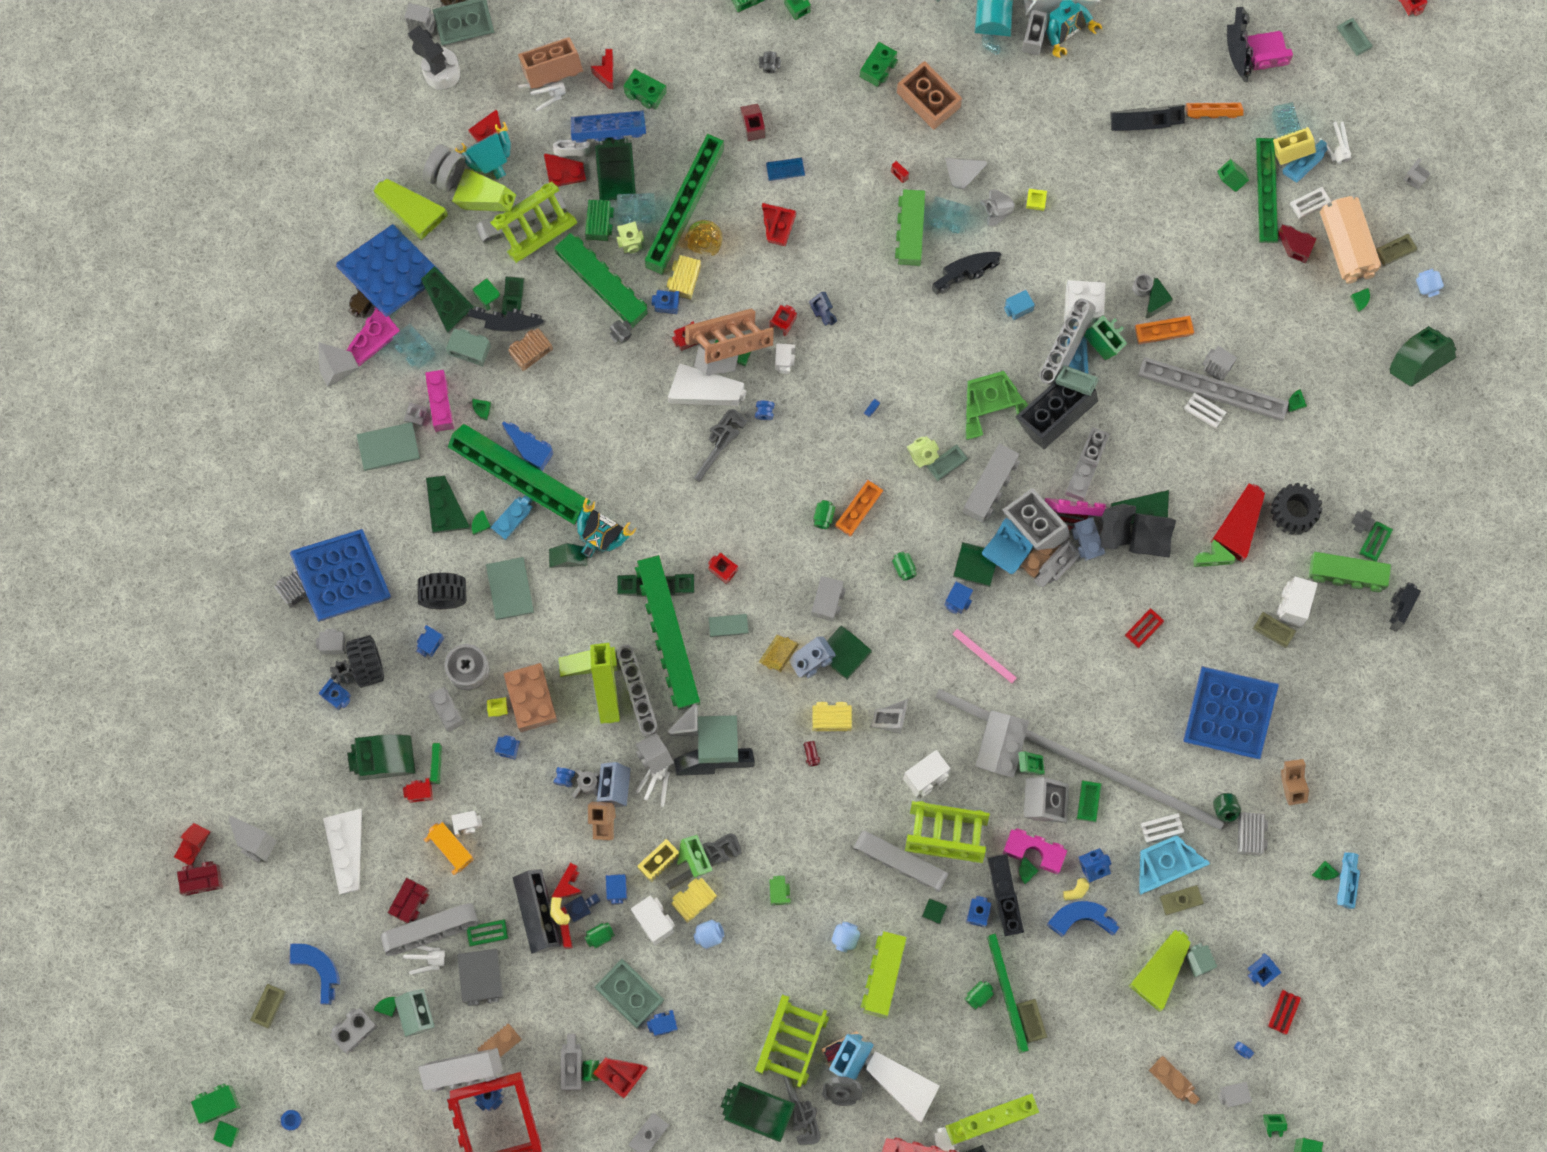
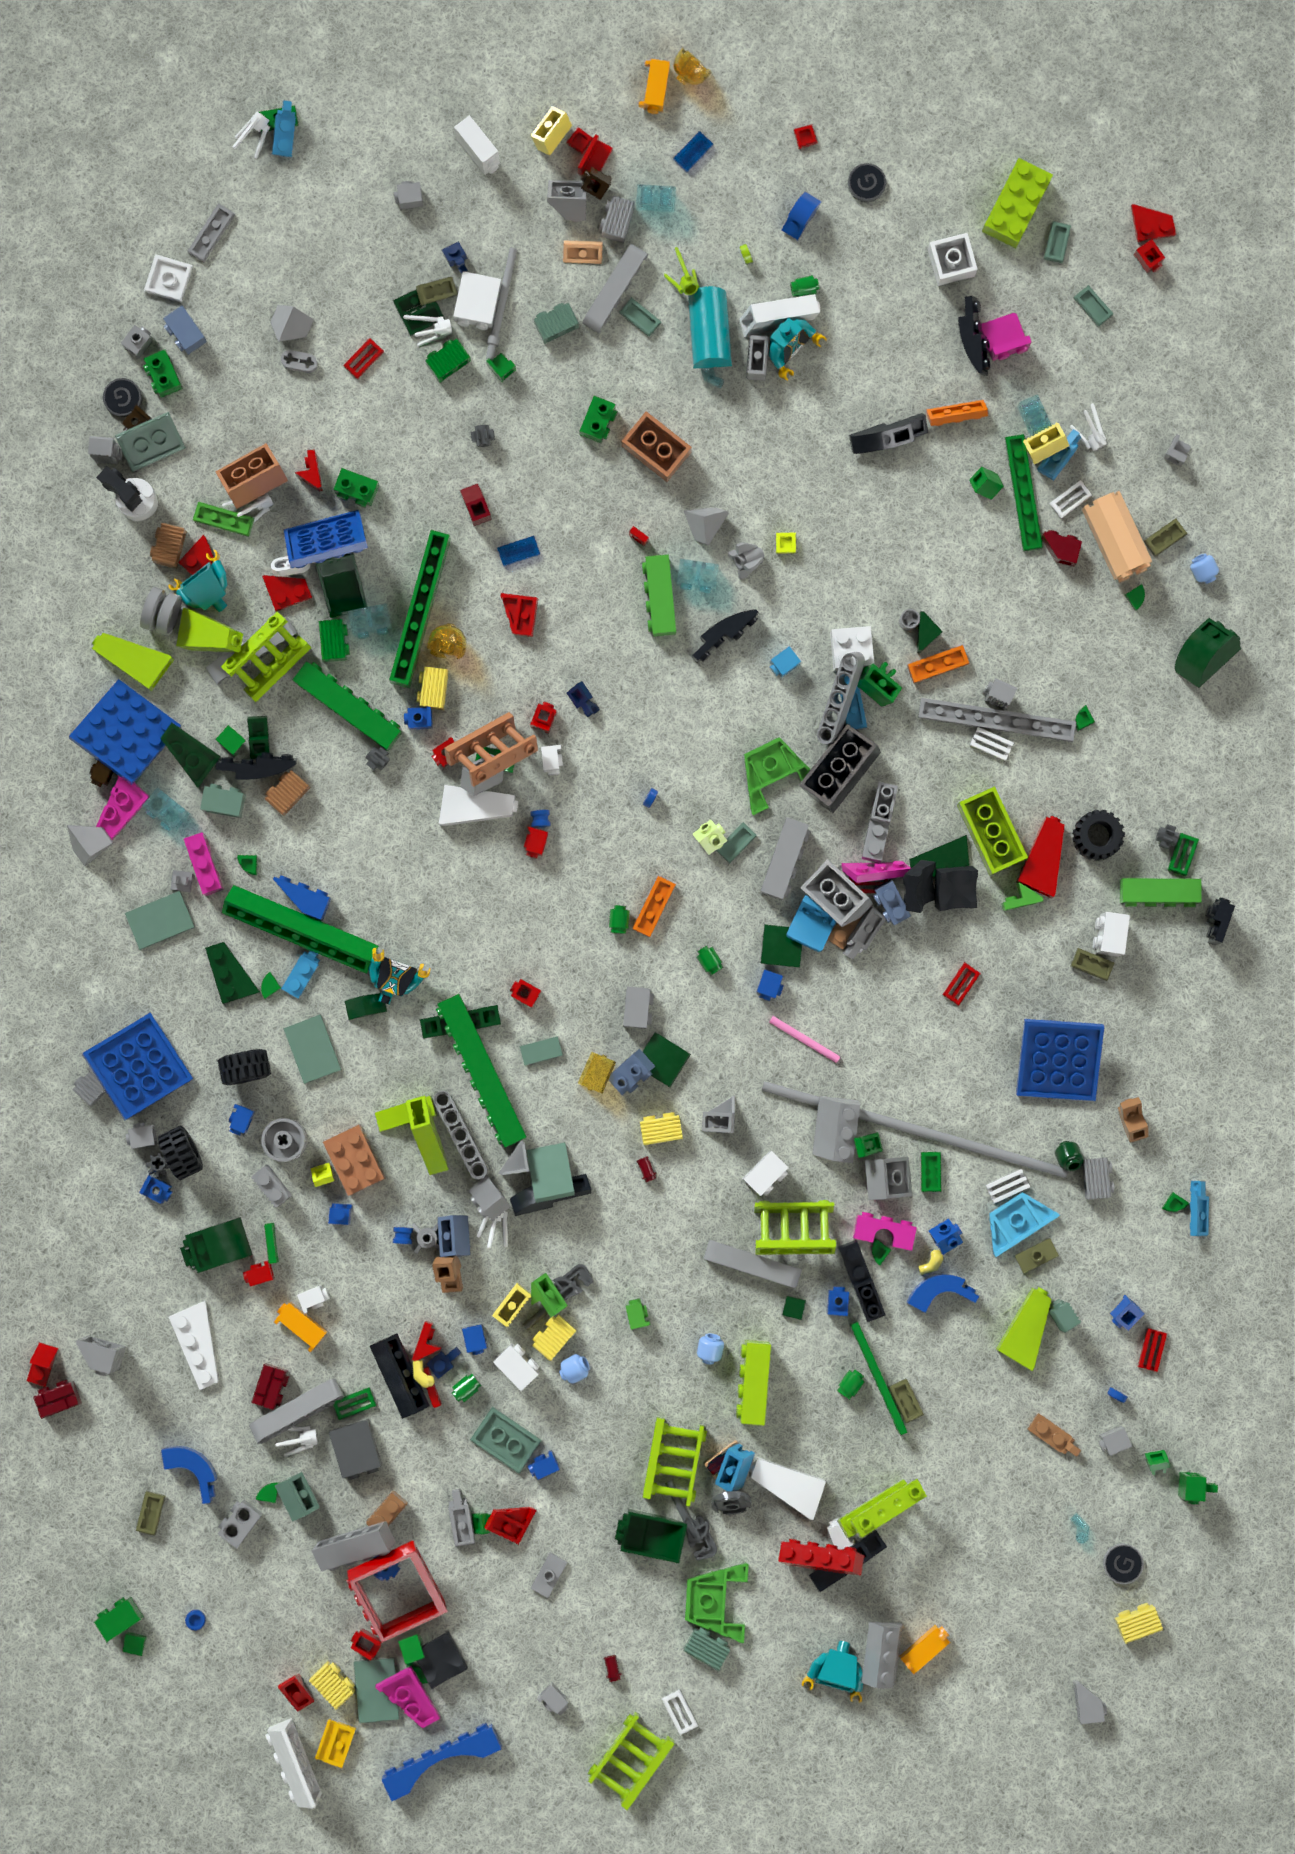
camera: 15 degrees left, 10 degrees up
(462, 113) = (168, 545): none -> medium nougat brick
(517, 99) = (223, 519): none -> bright green tile
(629, 238) = (366, 649): yellowish green brick -> none
(722, 436) = (501, 853): dark grey piece -> none
(756, 430) = (535, 842): none -> red window
(1077, 380) = (856, 737): sand green tile -> none
(1194, 488) = (992, 831): none -> lime brick

